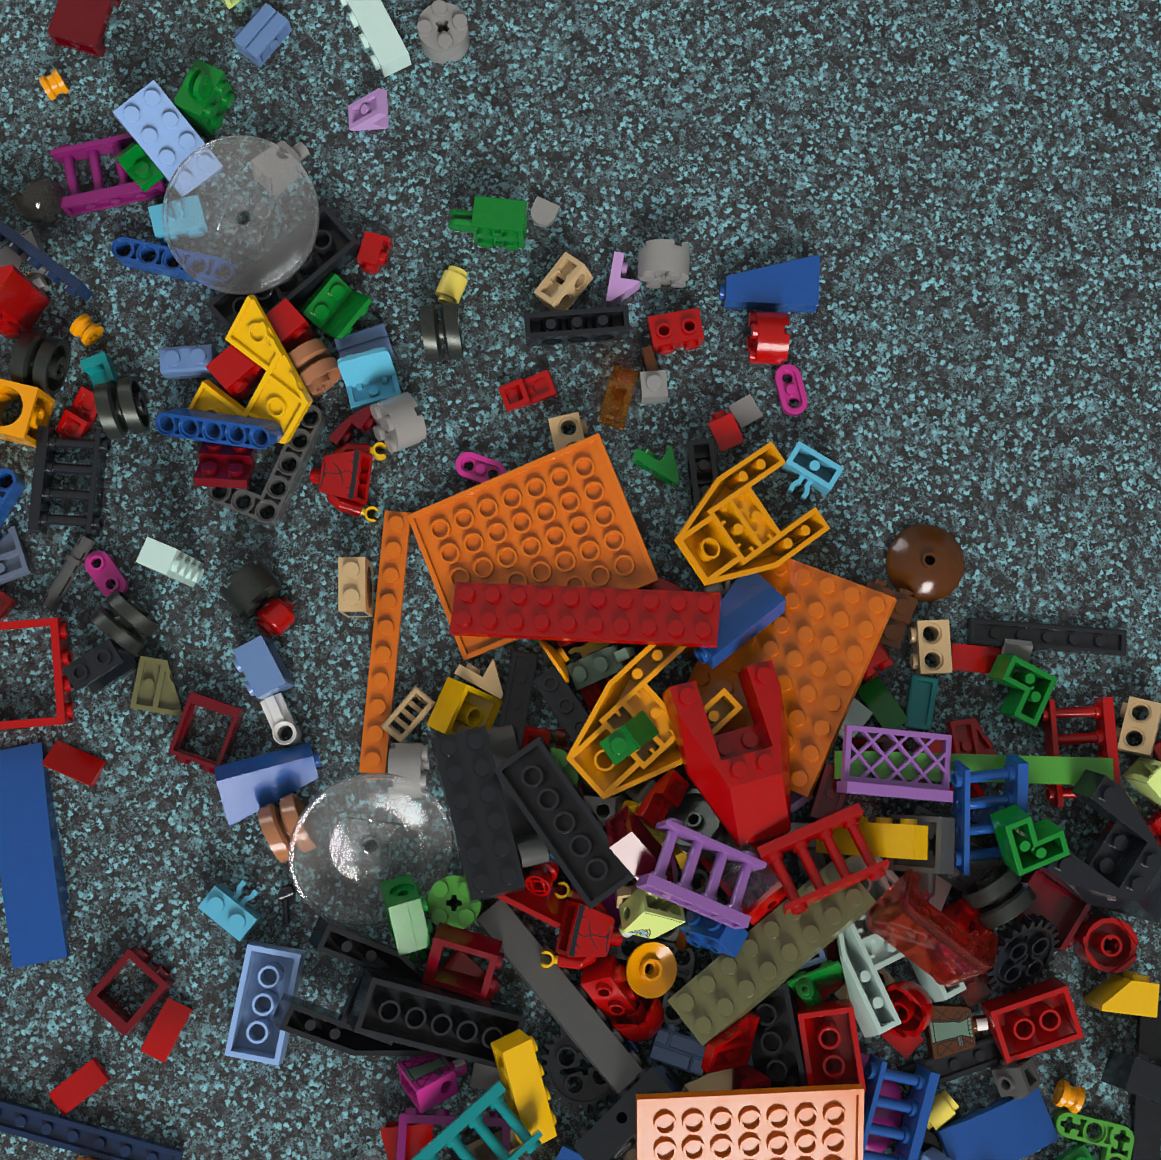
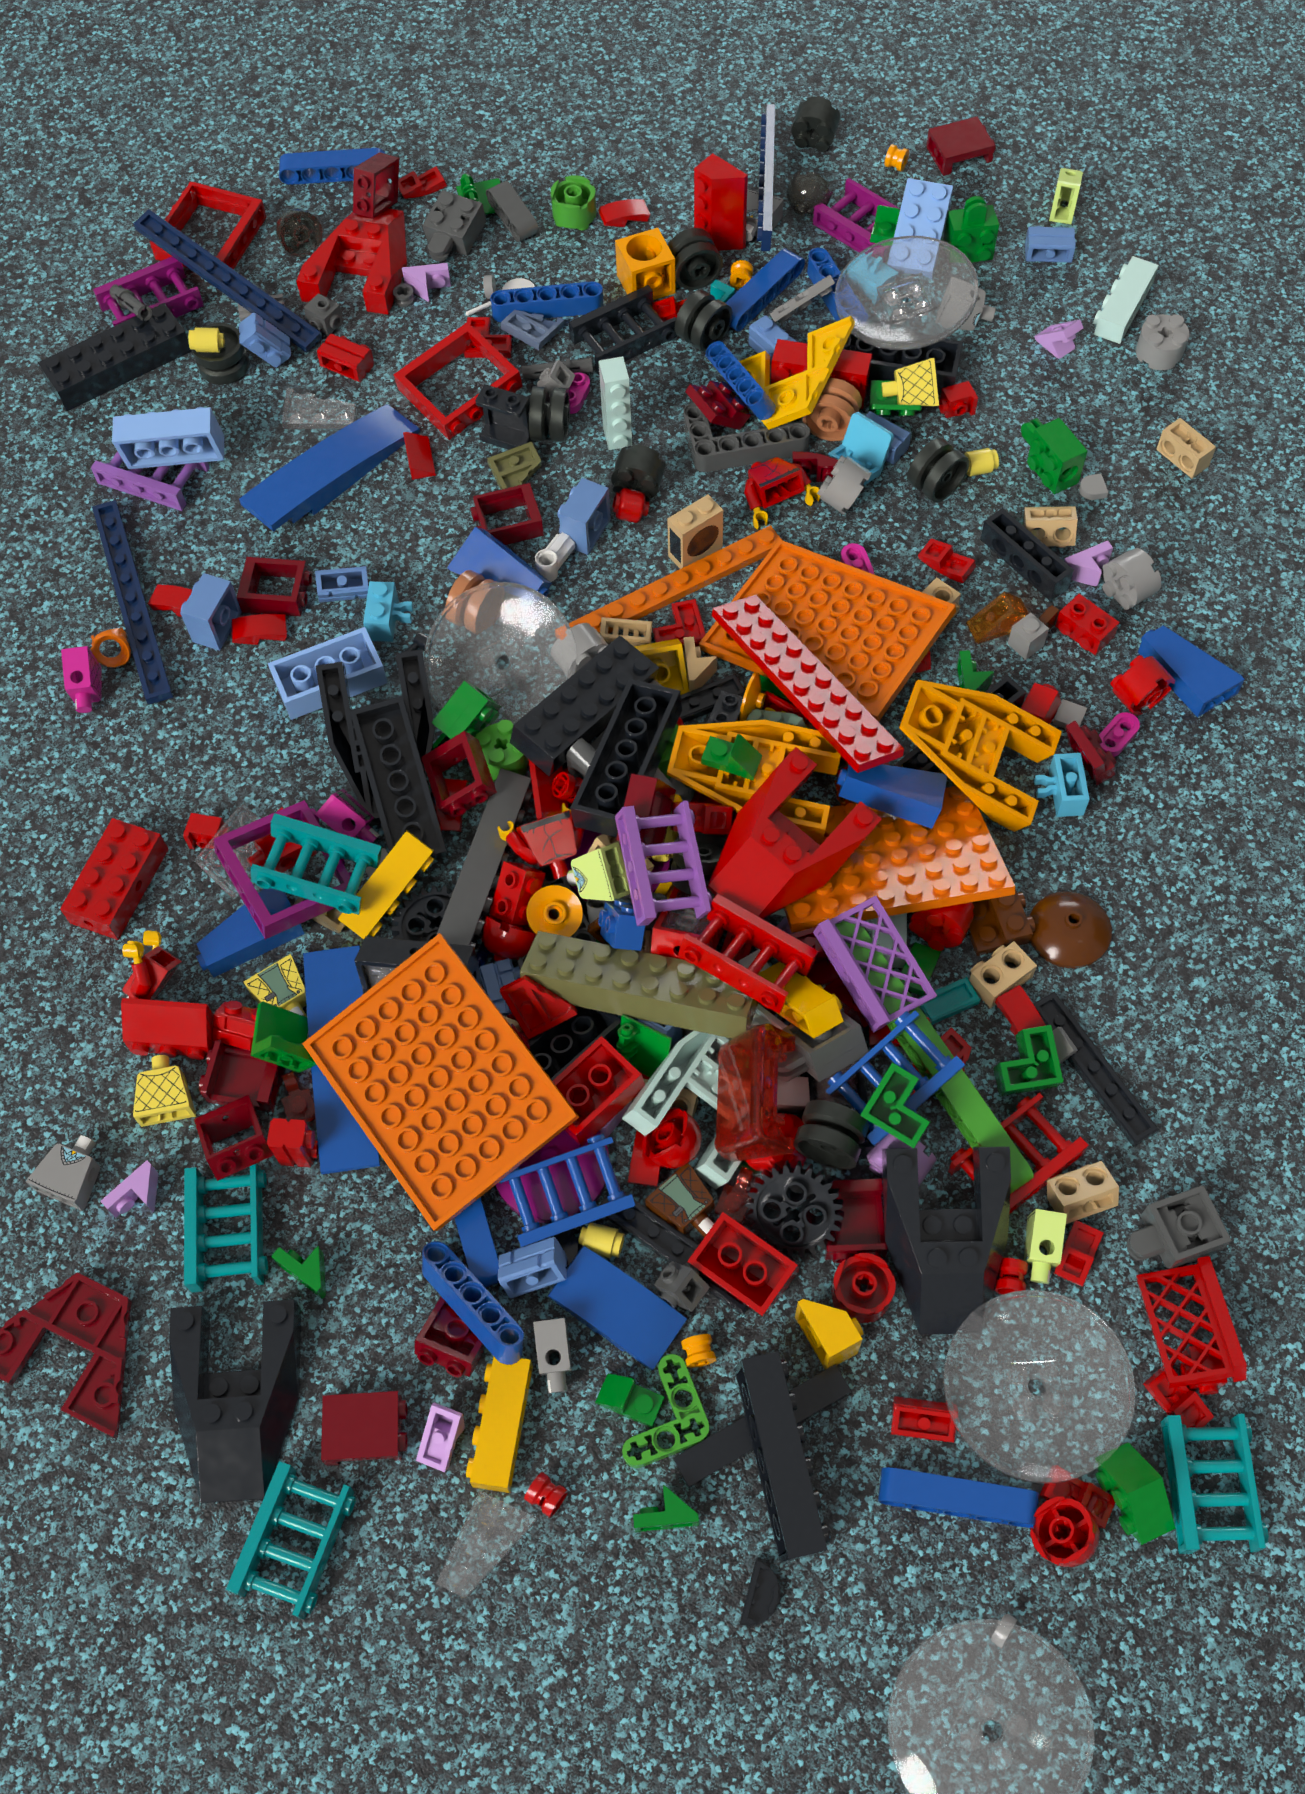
camera: 60 degrees right, 20 degrees down
(80, 590) = (557, 376): none -> light grey brick
(116, 321) = (764, 287): none -> blue beam
(123, 1069) = (210, 611): none -> medium blue brick
(163, 312) = (803, 299): none -> light grey wing
(177, 930) = (341, 584): none -> medium blue brick
(341, 284) = (914, 385): none -> light yellow torso
(439, 656) = (687, 624): none -> red tile
(568, 109) = (1186, 448): none -> tan brick
(798, 429) = (1095, 760): none -> dark red plate

